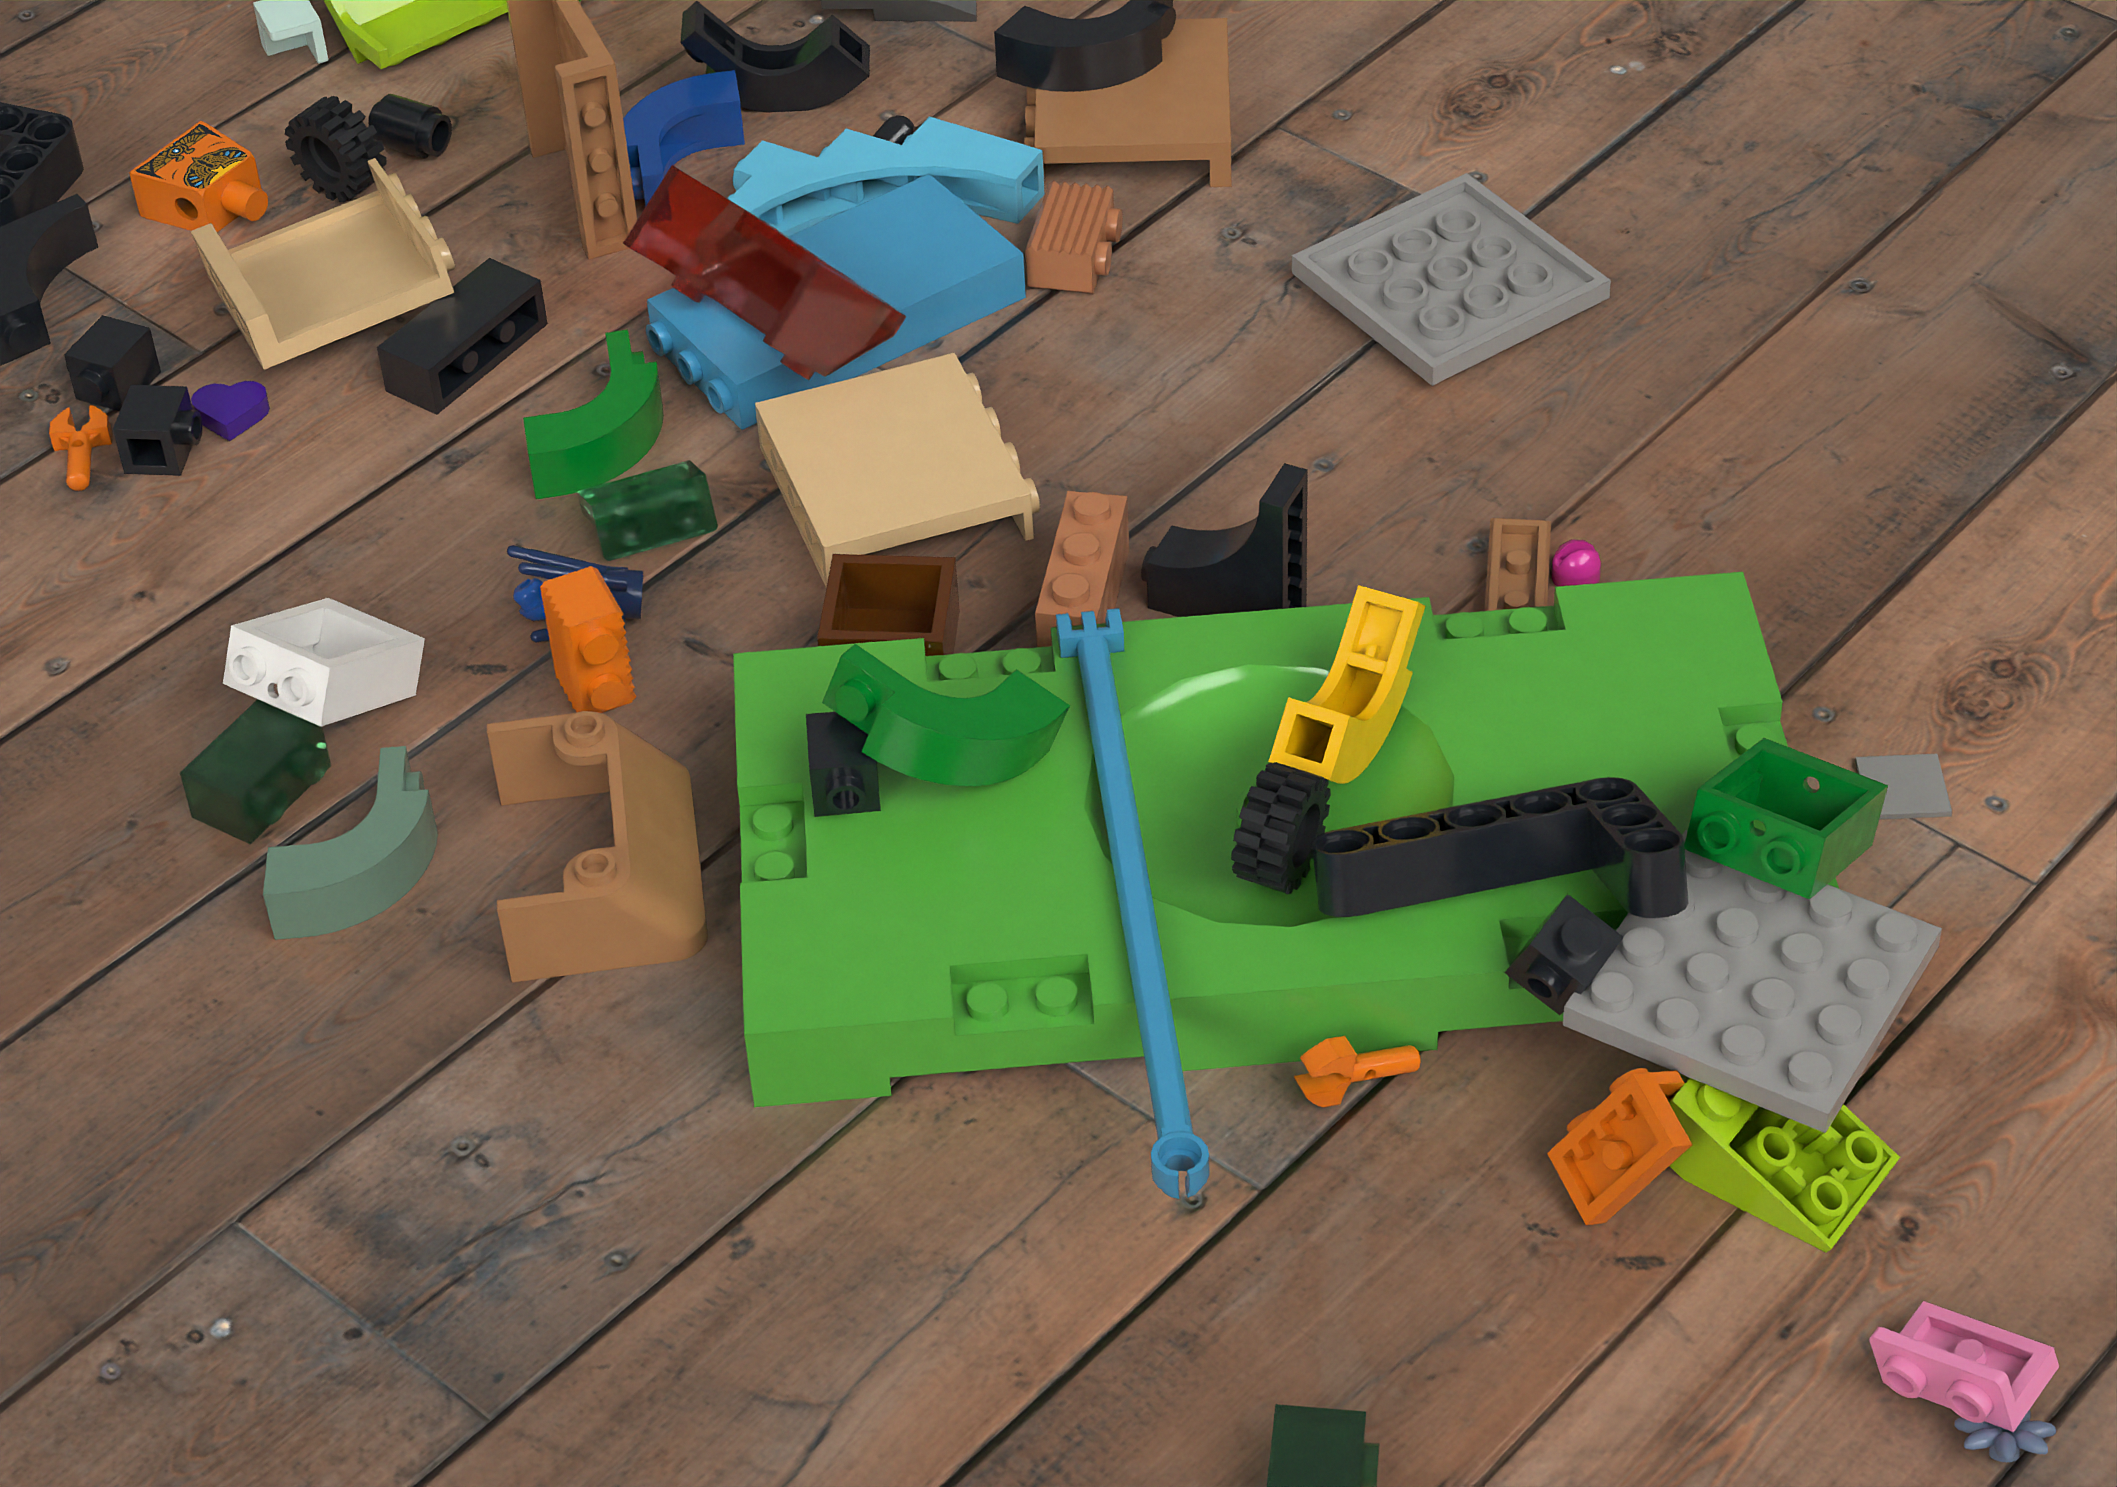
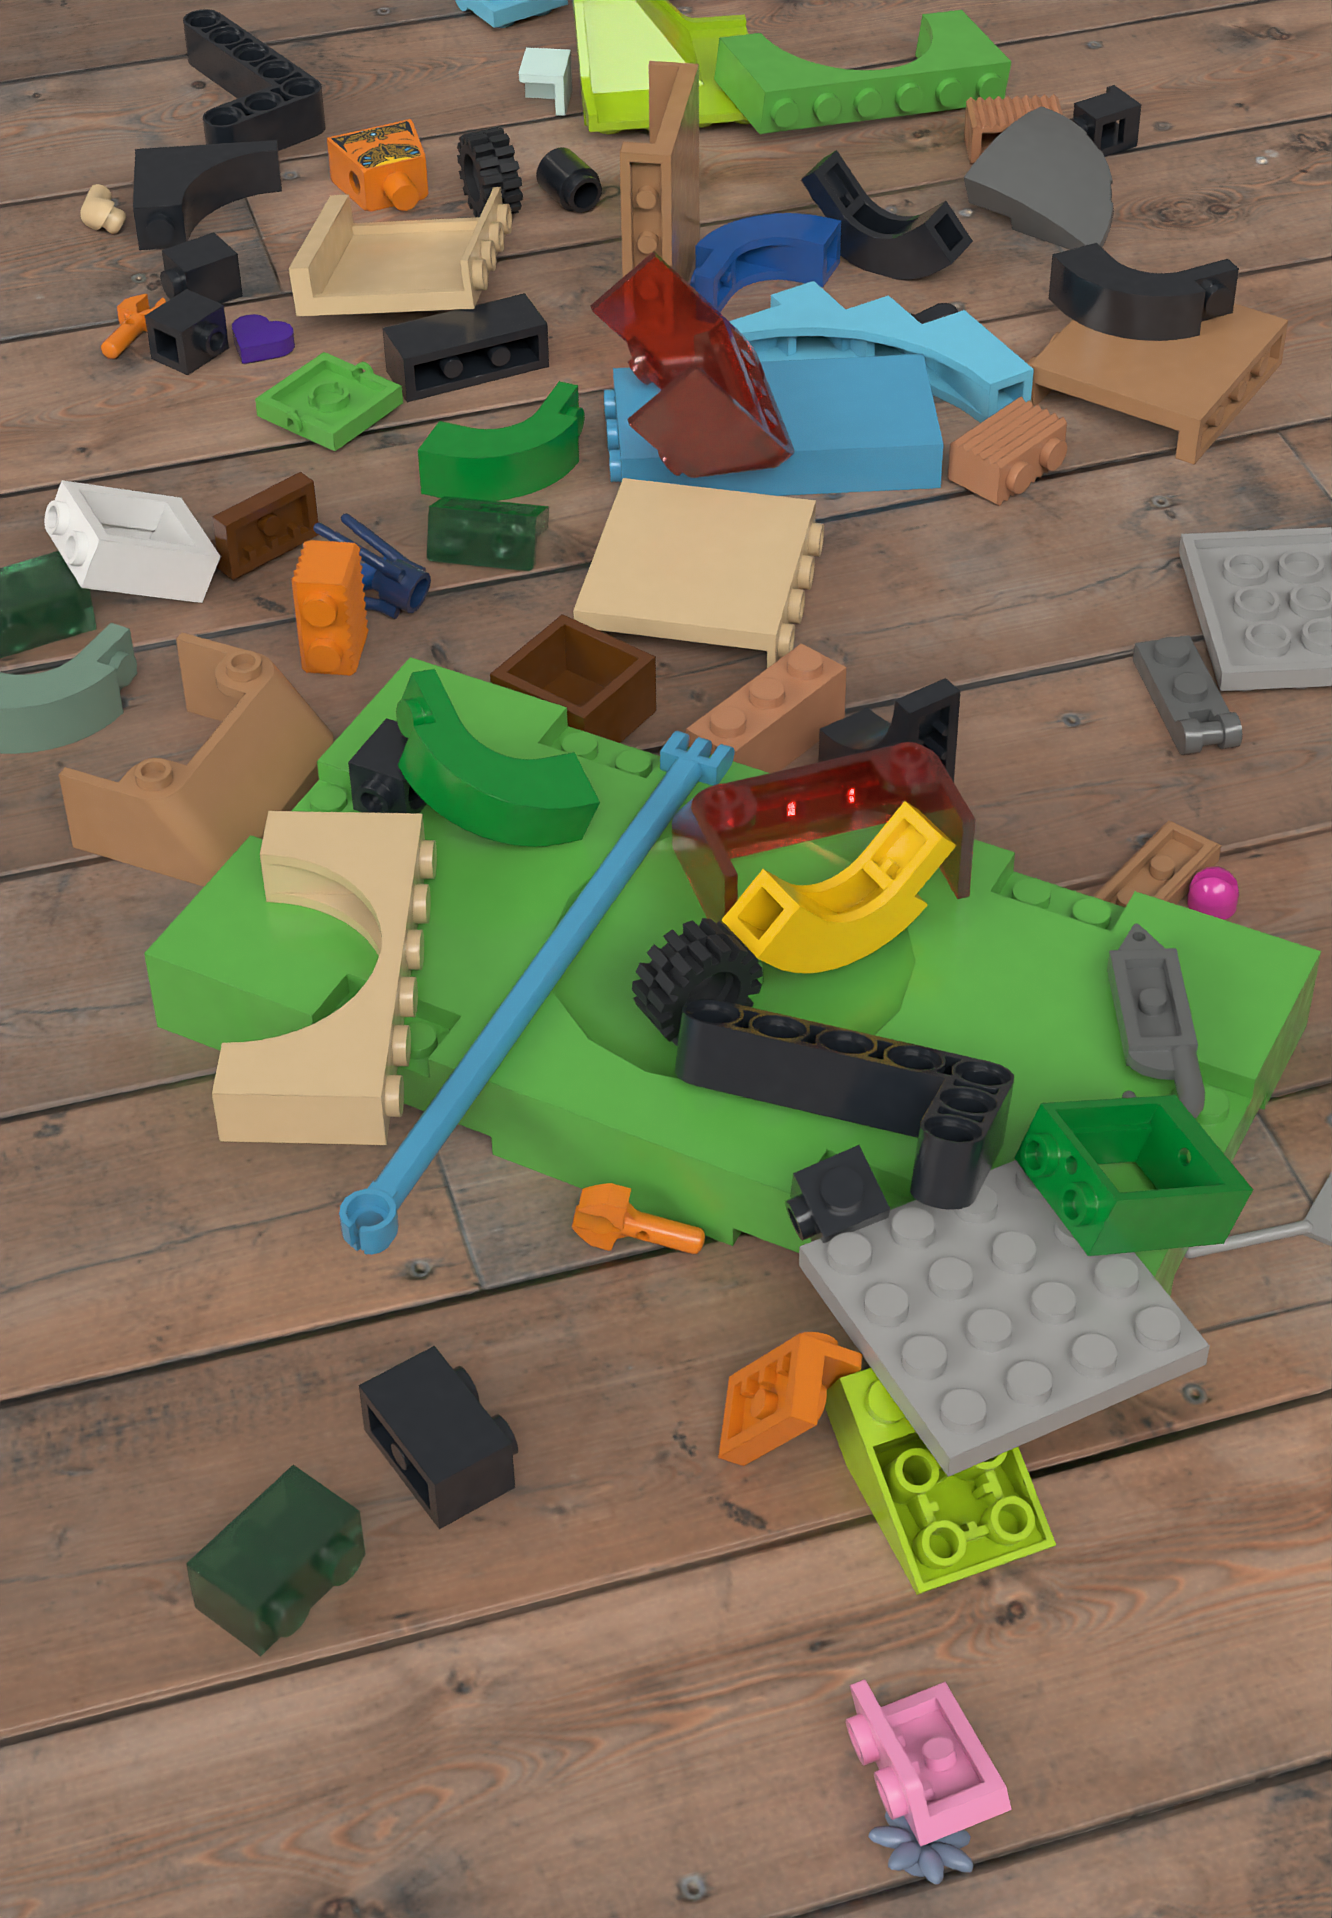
camera: 30 degrees right, 0 degrees up
(369, 444) = (329, 400): none -> bright green plate
(437, 588) = (265, 525): none -> reddish brown bracket
(911, 864) = (340, 1073): none -> tan arch
(1185, 684) = (815, 804): none -> clear red windscreen
(1354, 1324) = (439, 1436): none -> black brick
(1408, 401) = (1186, 695): none -> dark grey plate
(1673, 683) = (1155, 1016): none -> dark grey plate

